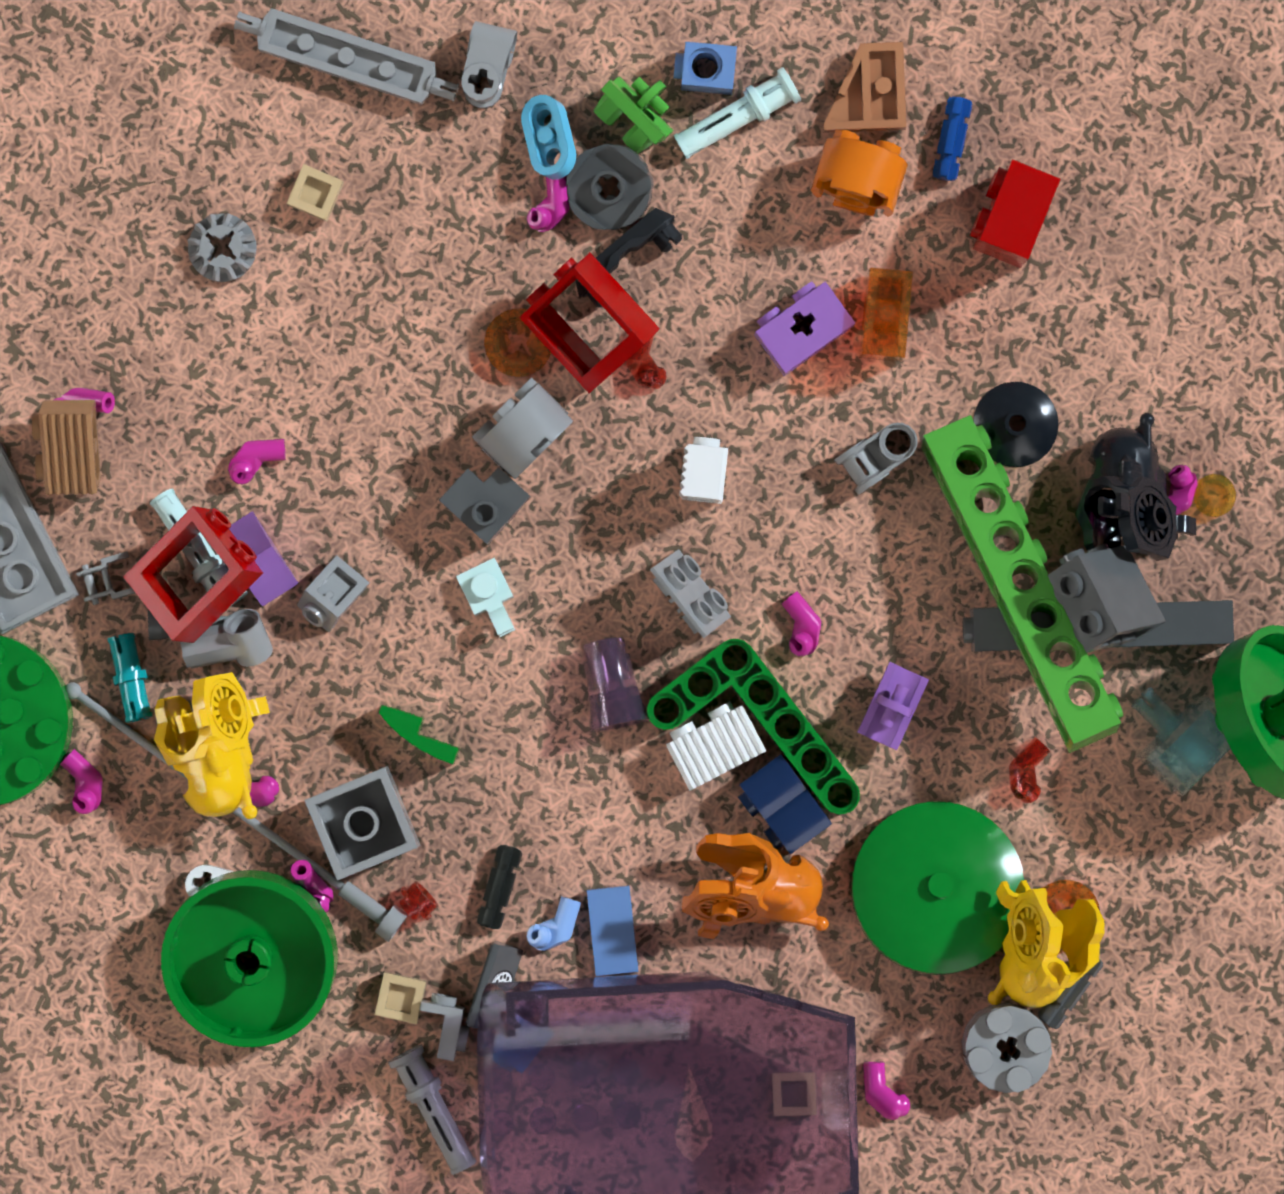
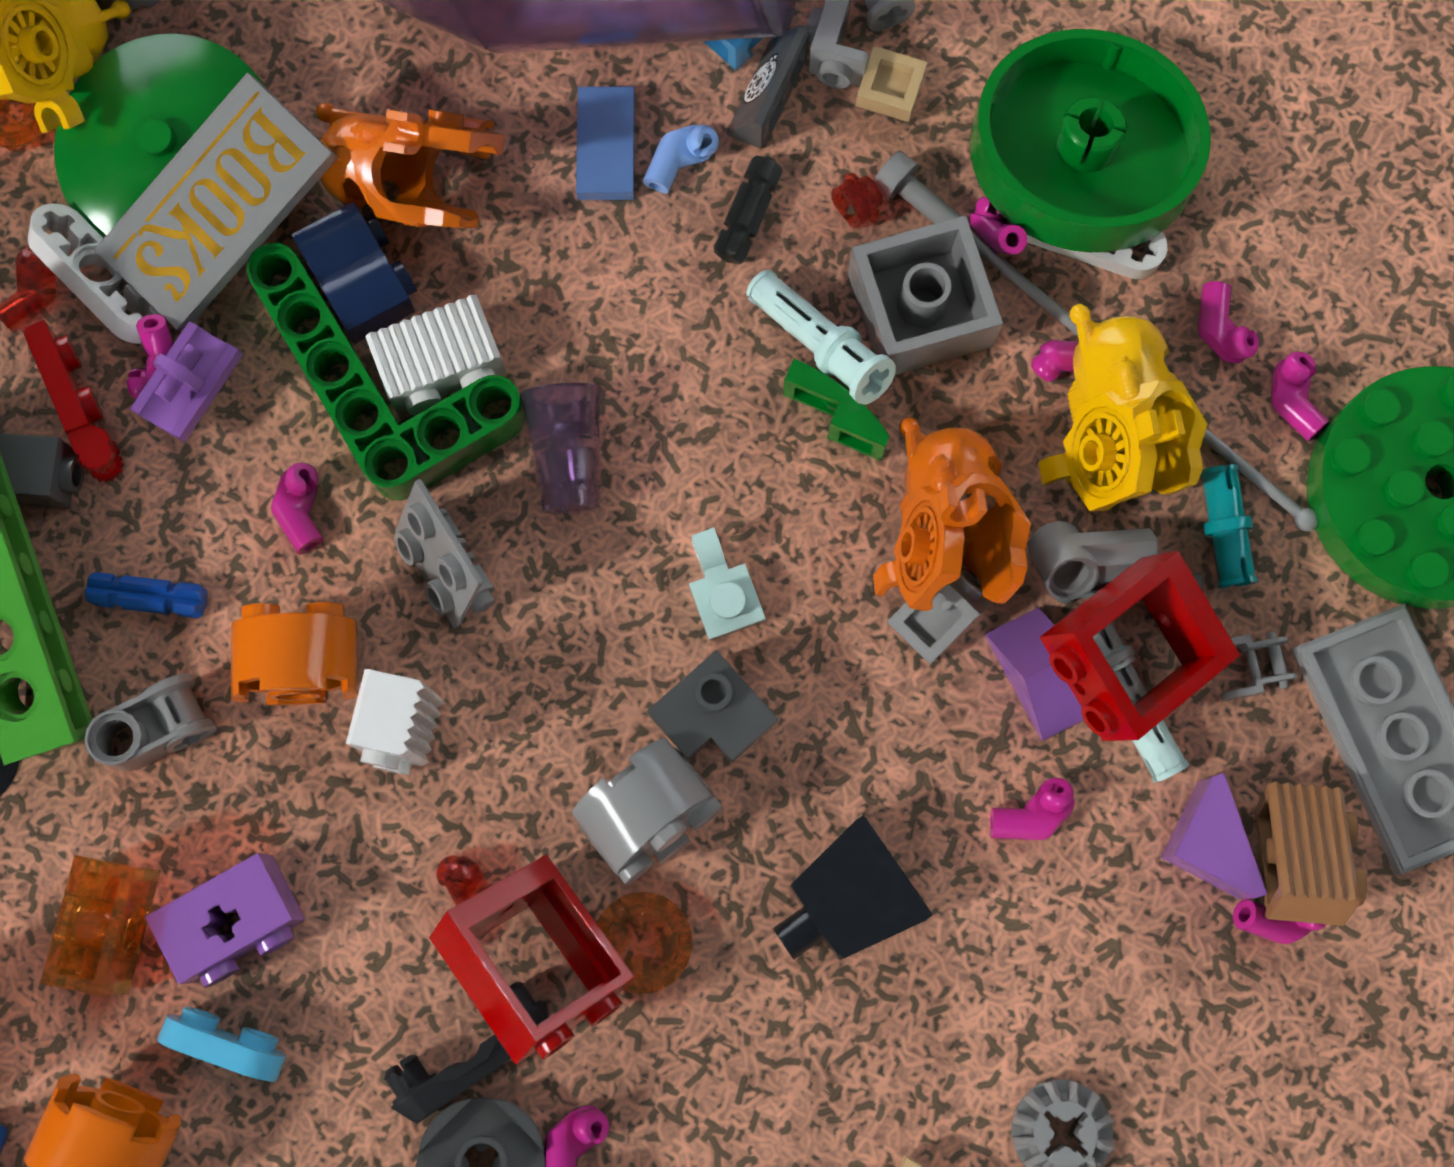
camera: 170 degrees left, 10 degrees down
(132, 450) = (1213, 841): none -> medium lavender slope
(142, 827) = (1218, 330): none -> dark pink arm
(338, 687) = (944, 530): none -> orange helmet
(378, 387) = (851, 897): none -> black torso
(424, 770) = (835, 348): none -> light aqua pin
(776, 241) = (197, 1035): none -> medium azure plate
(780, 510) = (293, 654): none -> orange brick
(887, 837) = (216, 202): none -> light grey tile
(901, 549) = (146, 594): none -> blue axle
(919, 726) = (155, 340): none -> dark pink arm
(972, 681) = (74, 405): none -> red hinge
(994, 782) = (100, 297): none -> white beam

